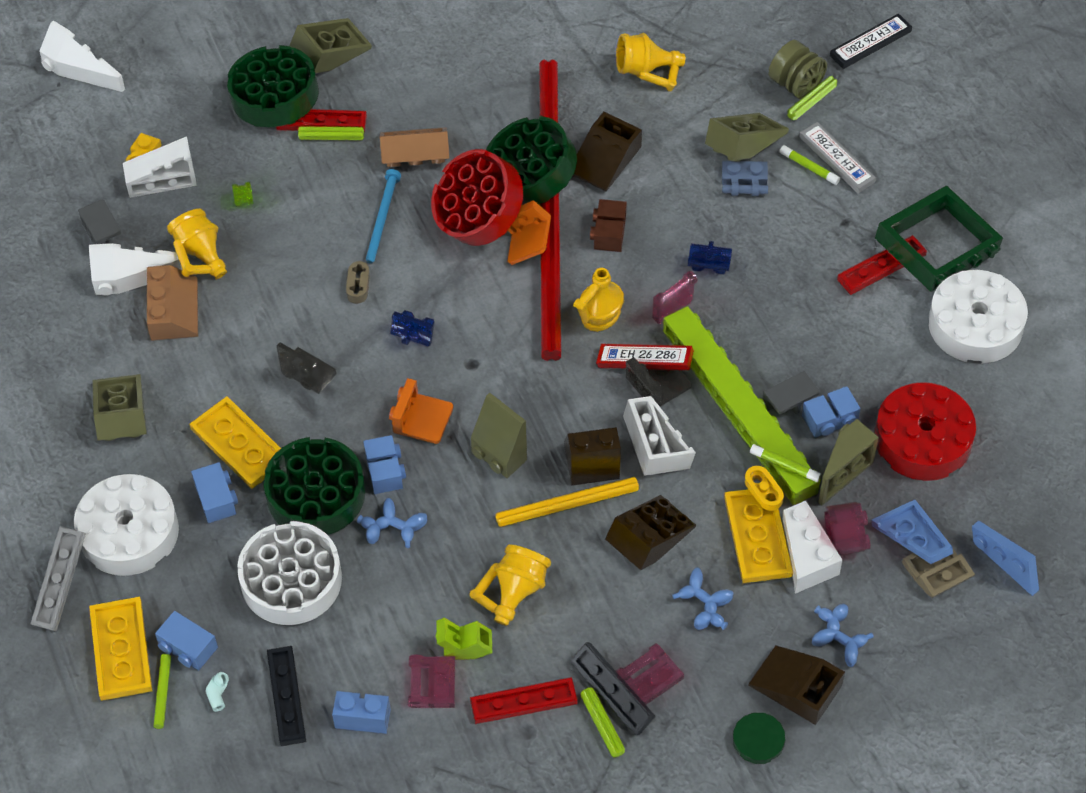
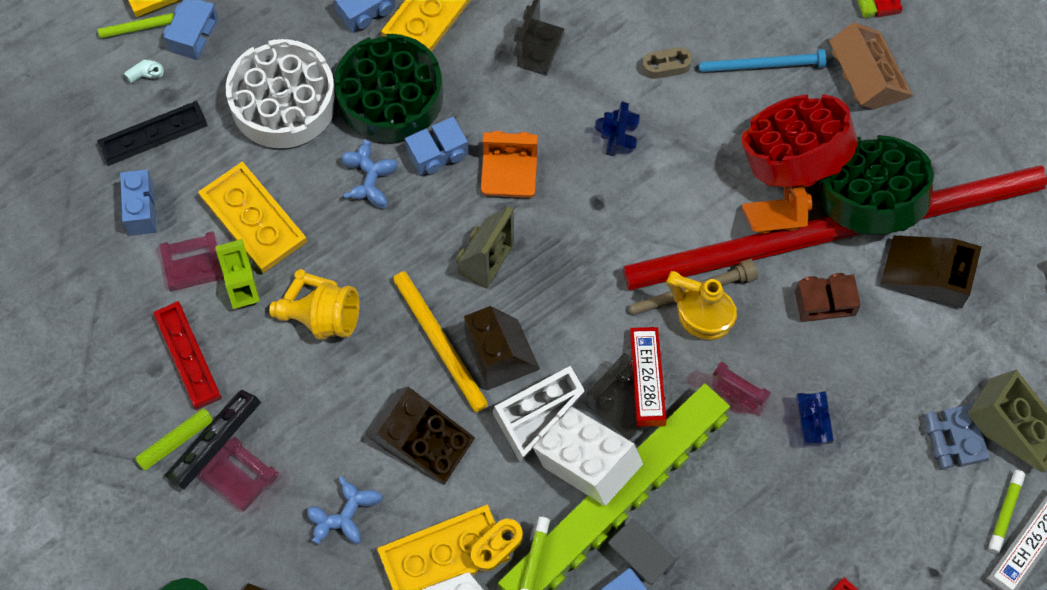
camera: 75 degrees right, 10 degrees up
(402, 622) = (252, 215): none -> yellow plate
(570, 274) = (745, 271): none -> dark tan piece
(706, 407) = (588, 455): none -> white brick

